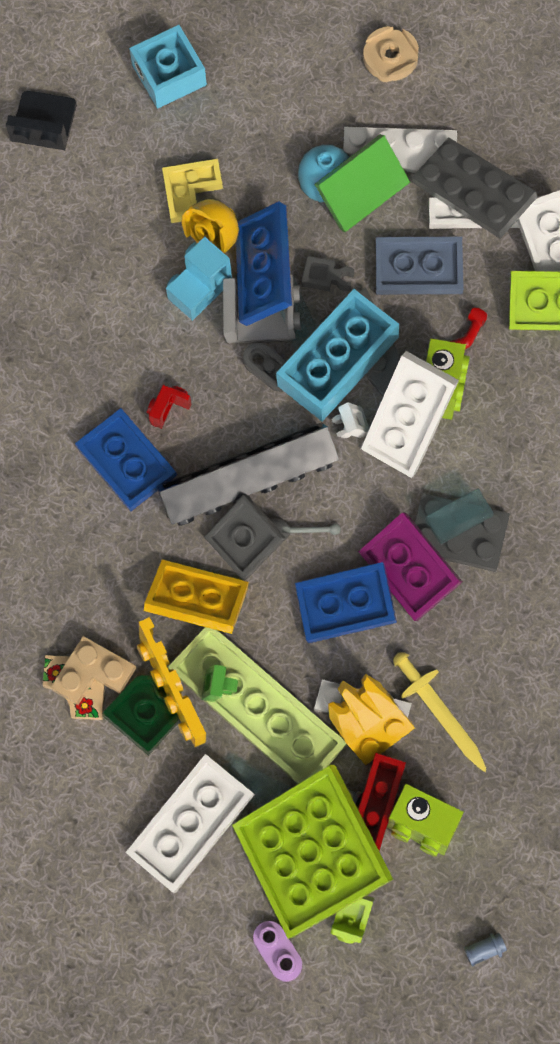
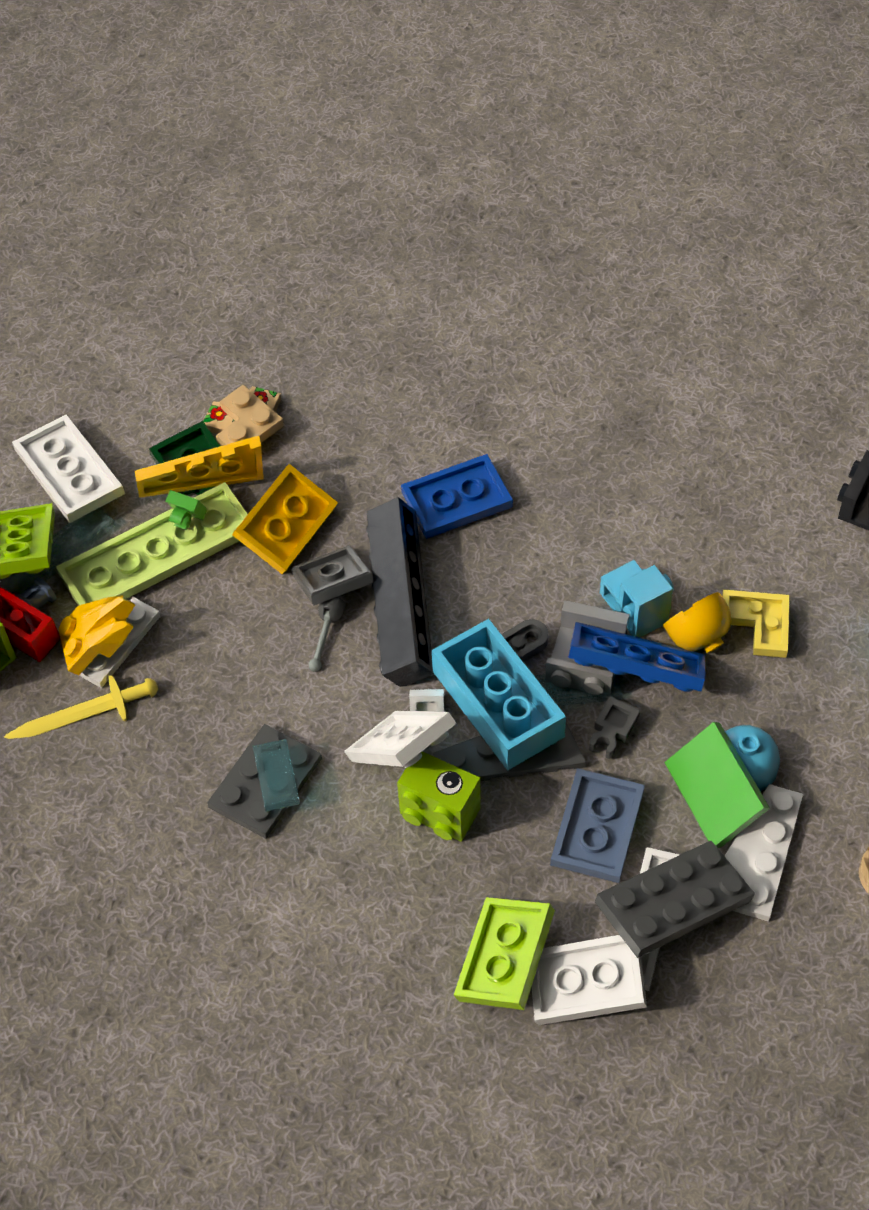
camera: 105 degrees right, 15 degrees down
(159, 408) = (505, 538): red bracket -> none
(345, 602) = (226, 647): blue plate -> none
(413, 566) = (240, 714): magenta plate -> none
(478, 318) = (485, 834): red piece -> none

